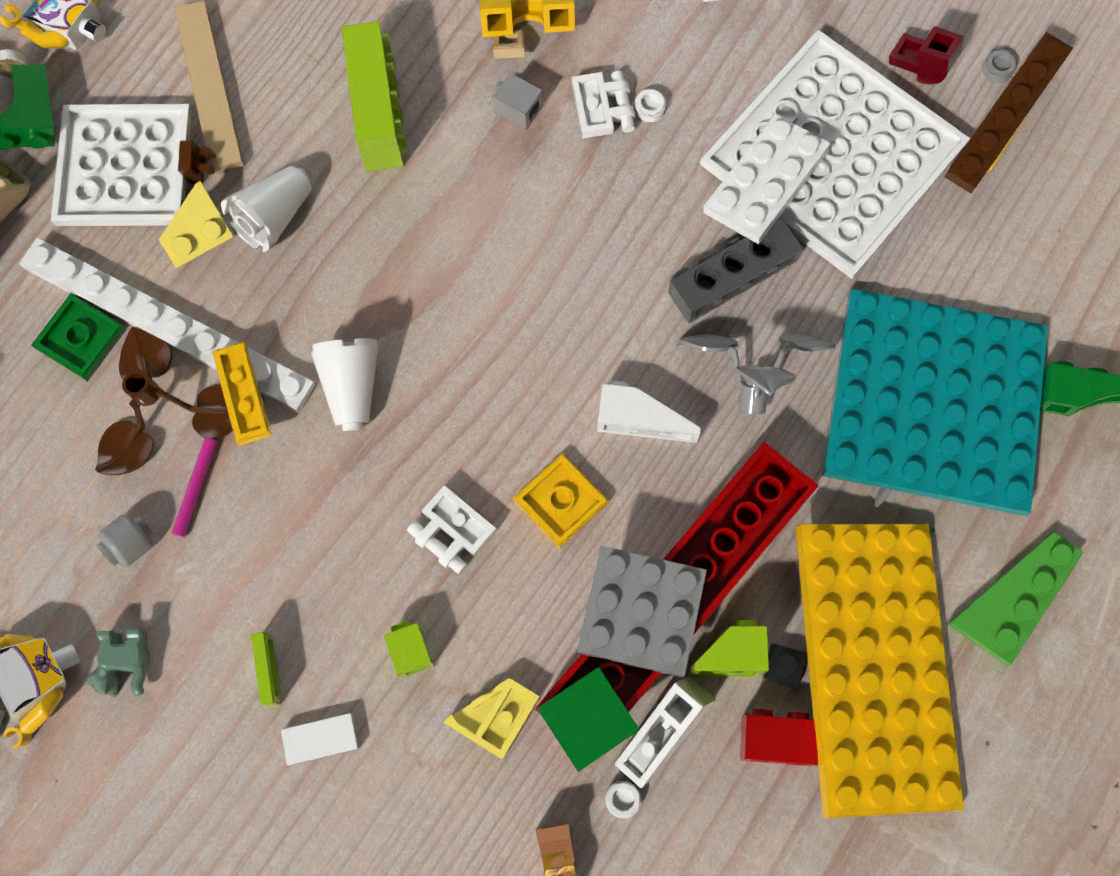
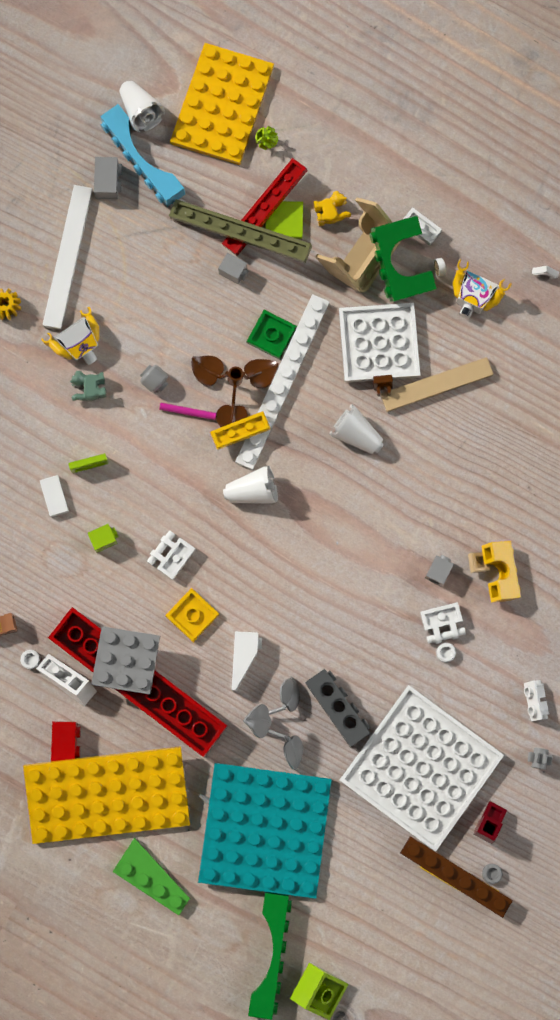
camera: 85 degrees right, 5 degrees up
(194, 228) = (340, 390): light yellow wing -> none
(374, 96) = (430, 483): lime brick -> none
(495, 717) = (69, 587): light yellow wing -> none
(588, 719) = (66, 635): green tile -> none
(736, 653) = (107, 713): lime slope -> none
(766, 178) = (395, 723): white plate -> none
(785, 665) = (105, 744): pearl dark grey plate -> none

